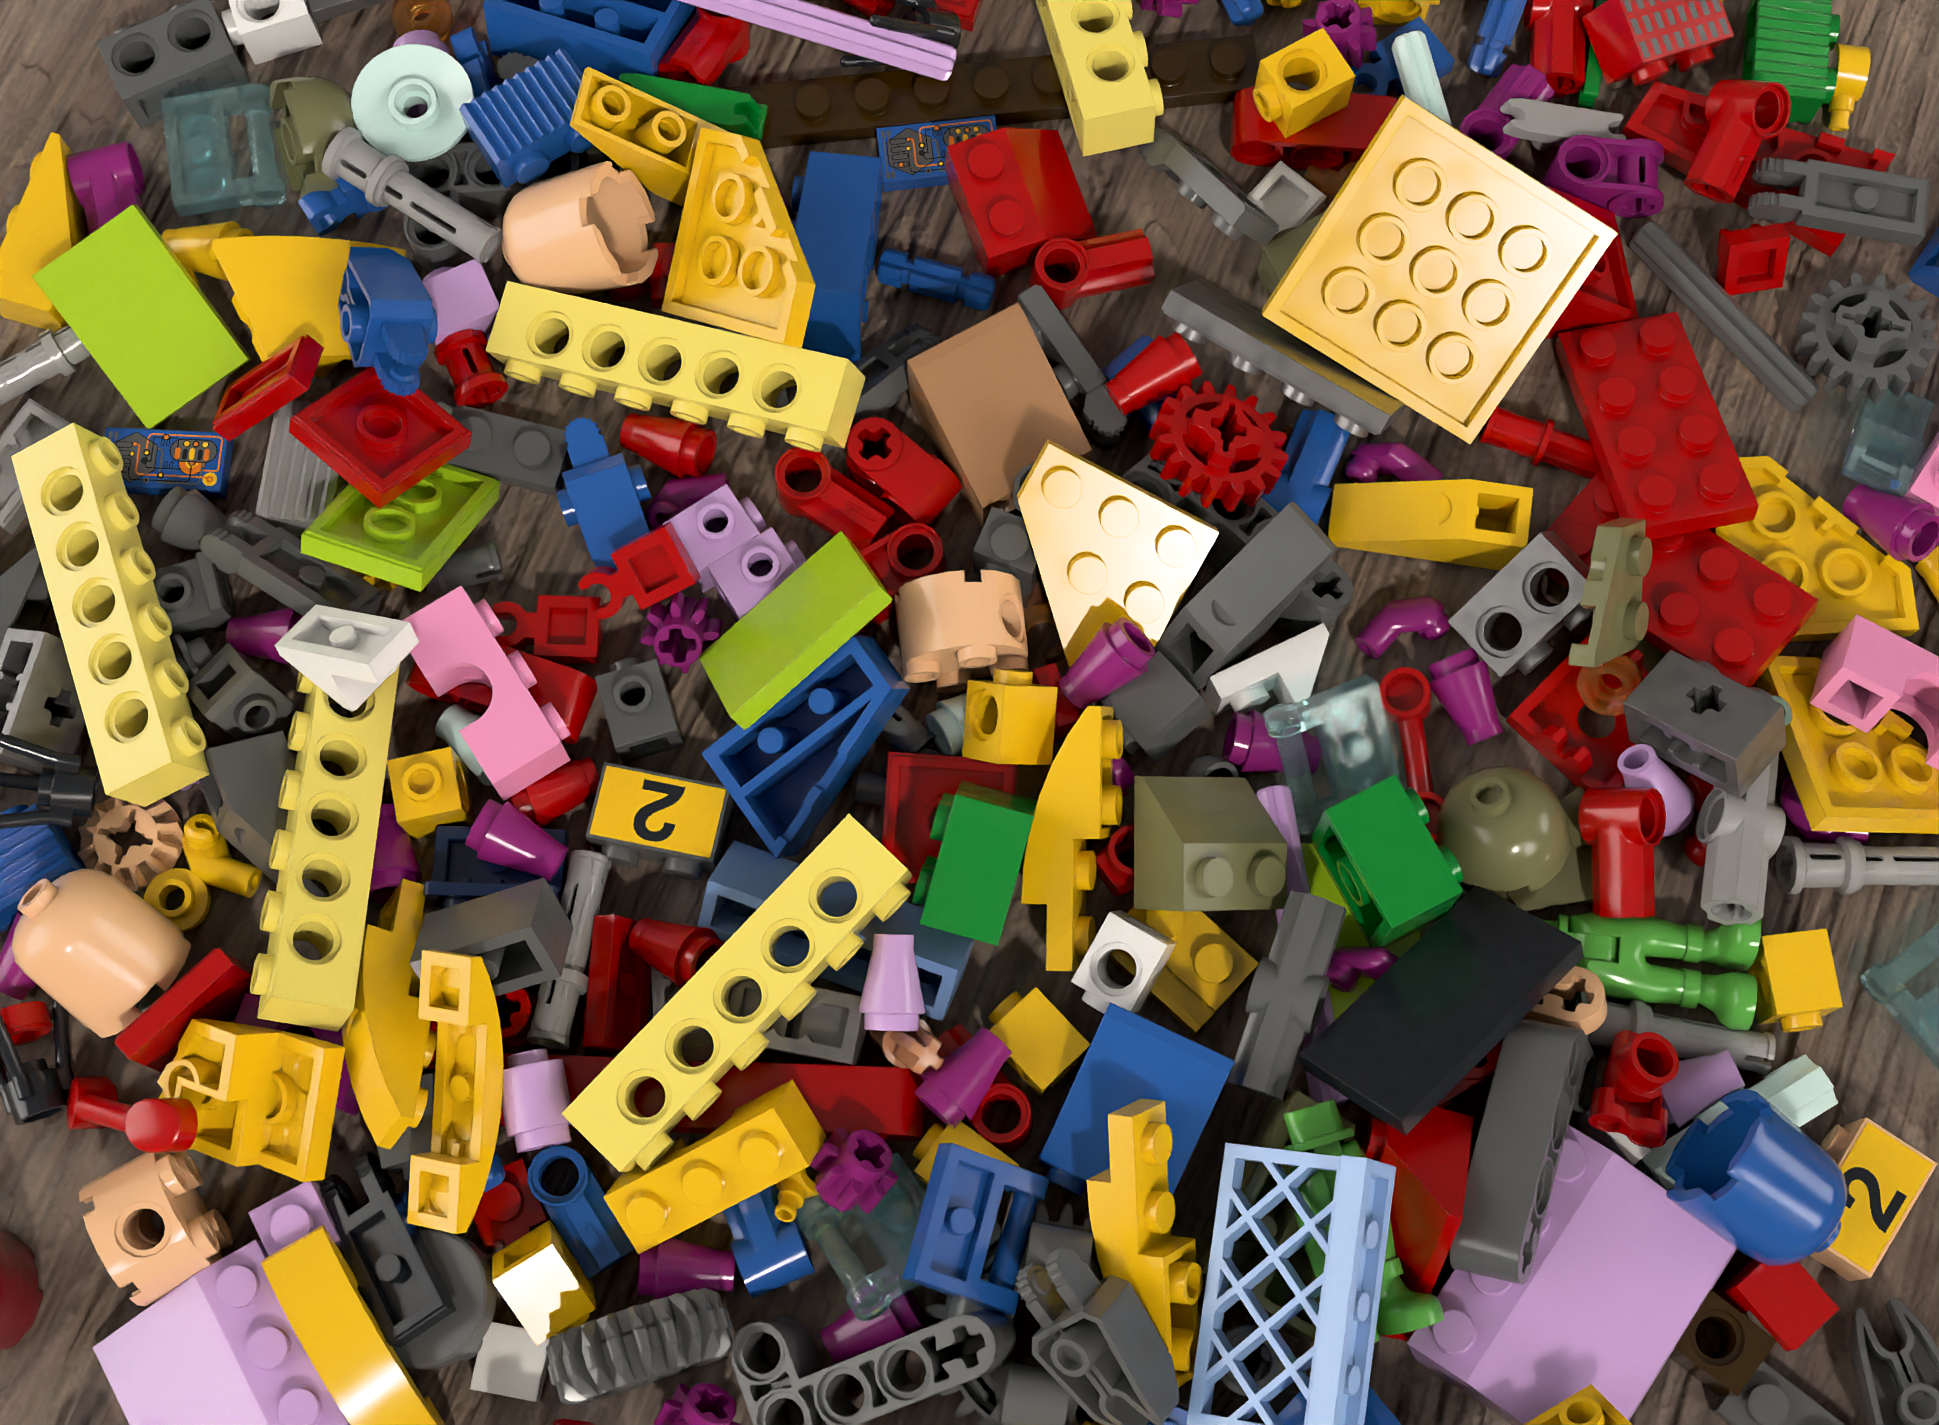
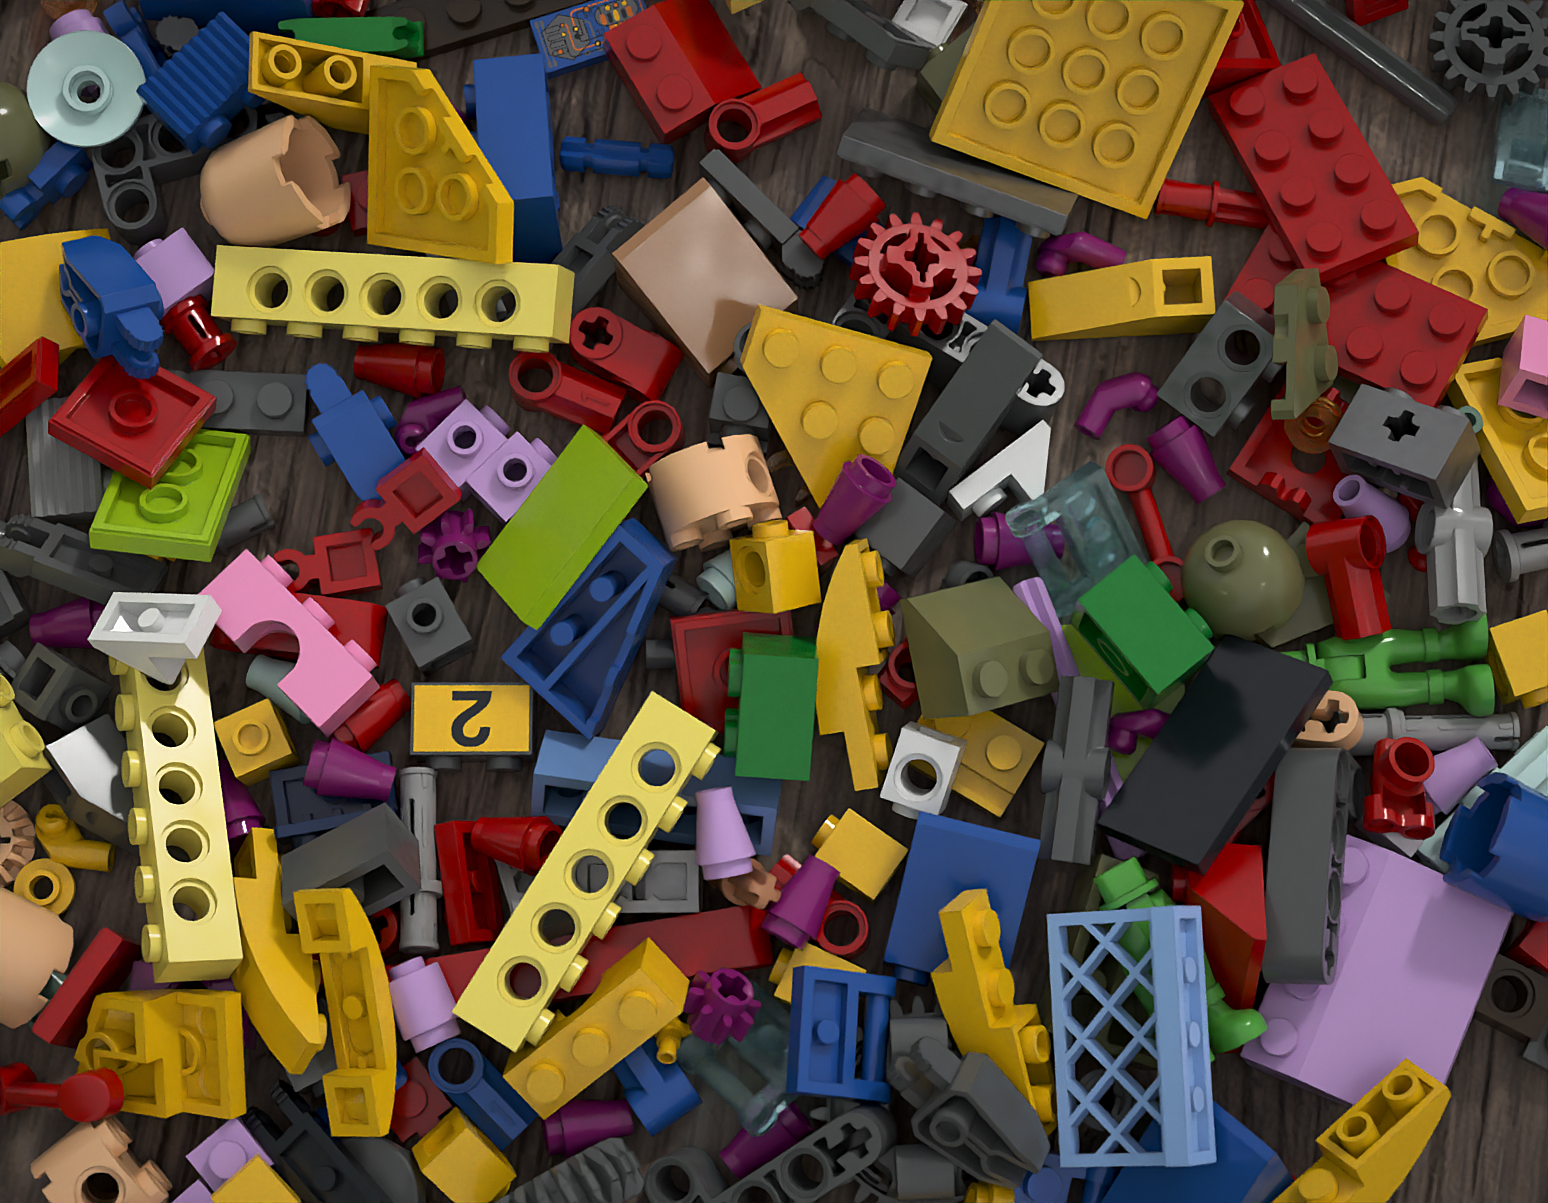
camera: 10 degrees left, 5 degrees up
(388, 182) = (84, 173): light grey pin -> none

